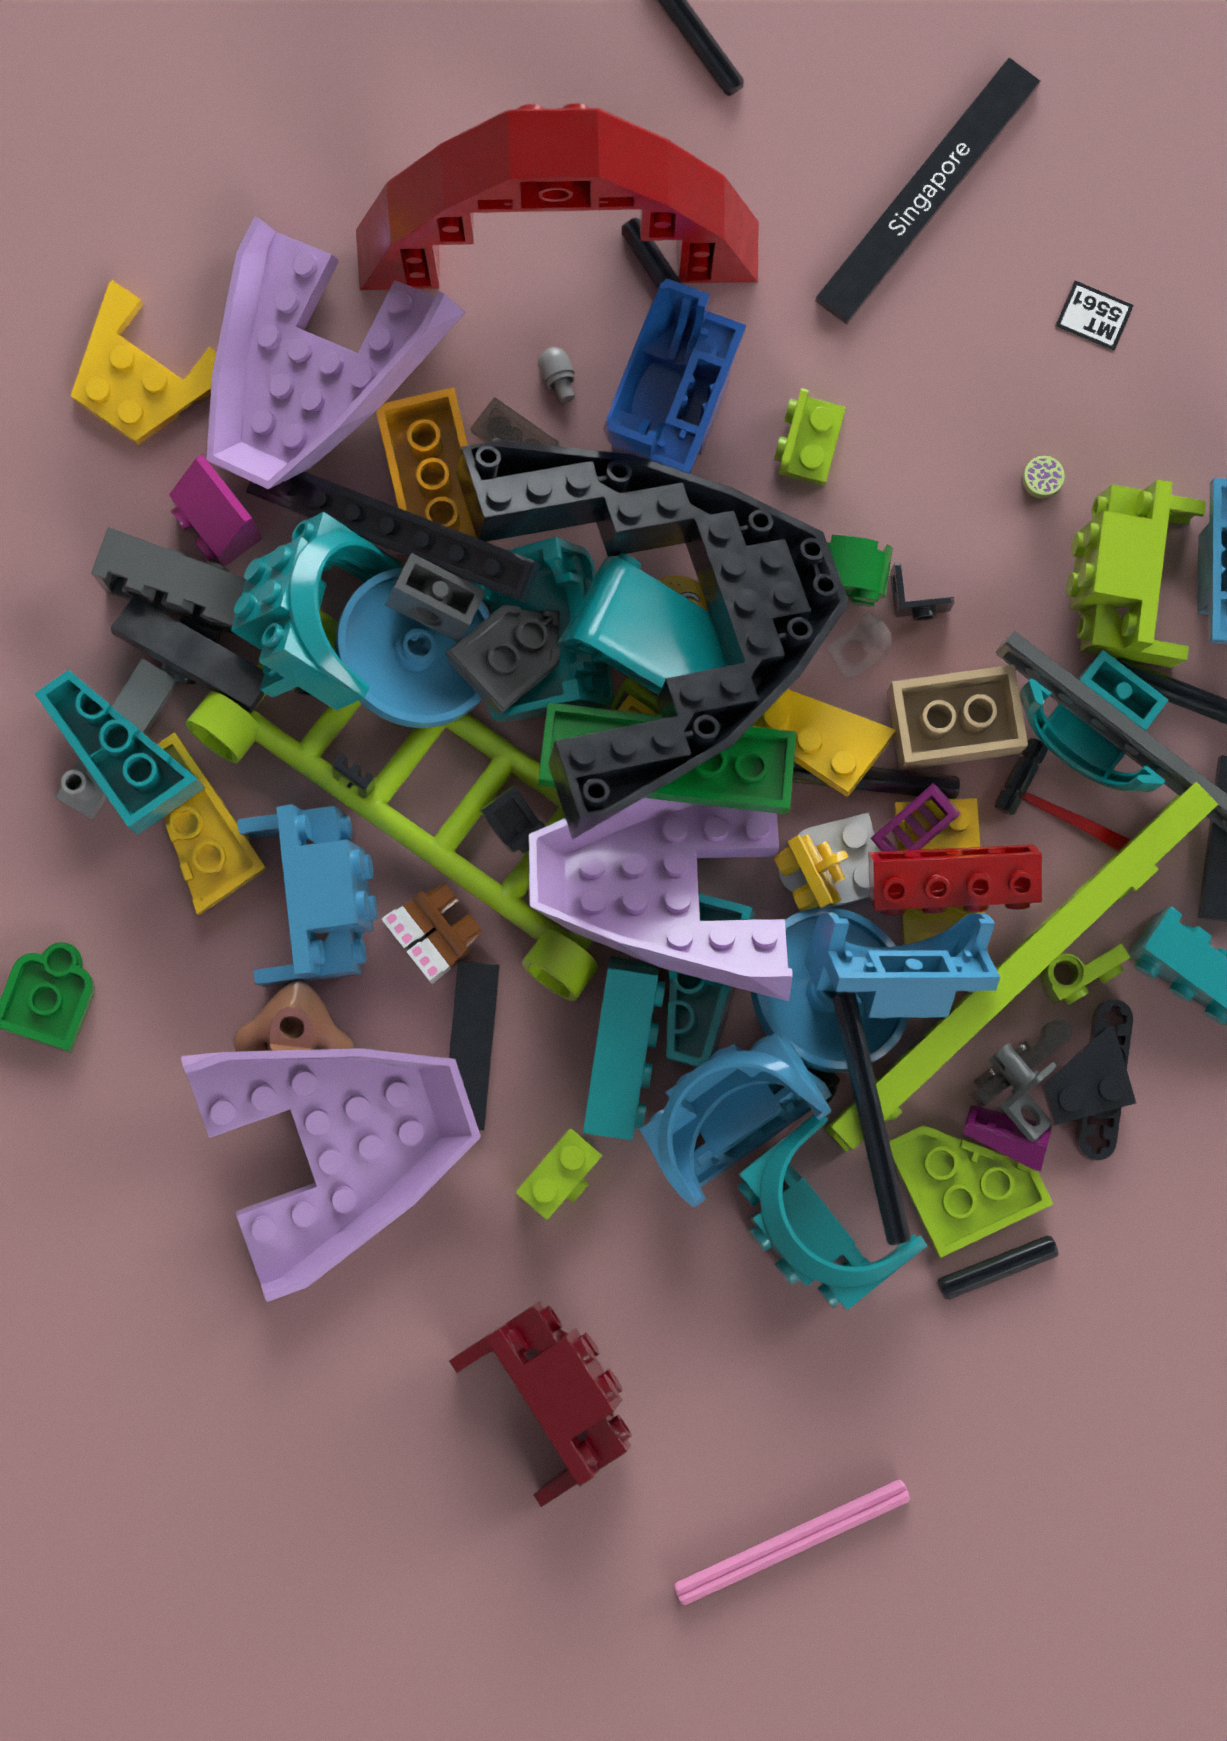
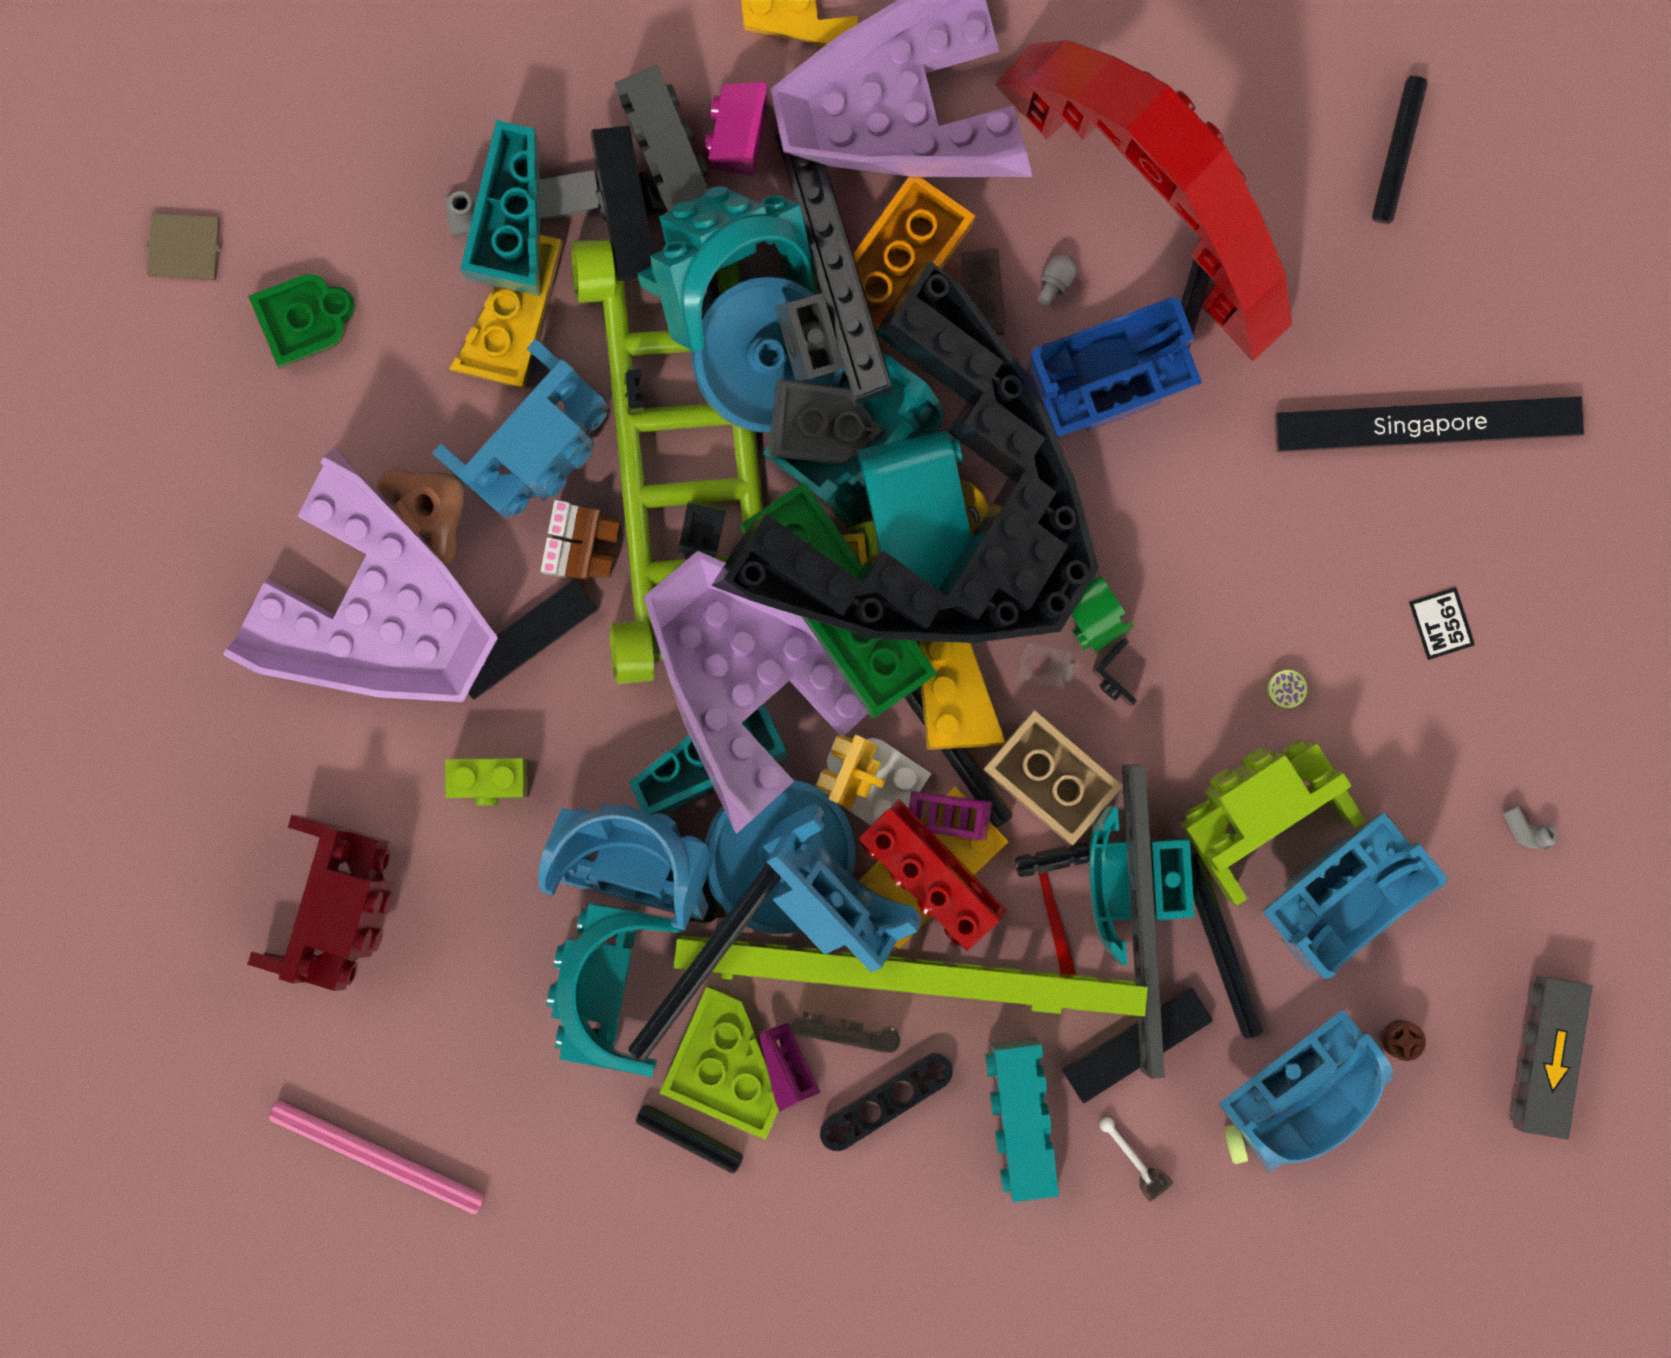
camera: 50 degrees right, 5 degrees up
(621, 1048) = (609, 746): teal wedge -> none
(811, 439) = (1167, 499): lime bracket -> none
(1022, 1081) = (829, 1046): dark grey bracket -> none
(1090, 1081) = (873, 1093): black wing -> none
(1105, 967) = (966, 1034): lime plate -> none

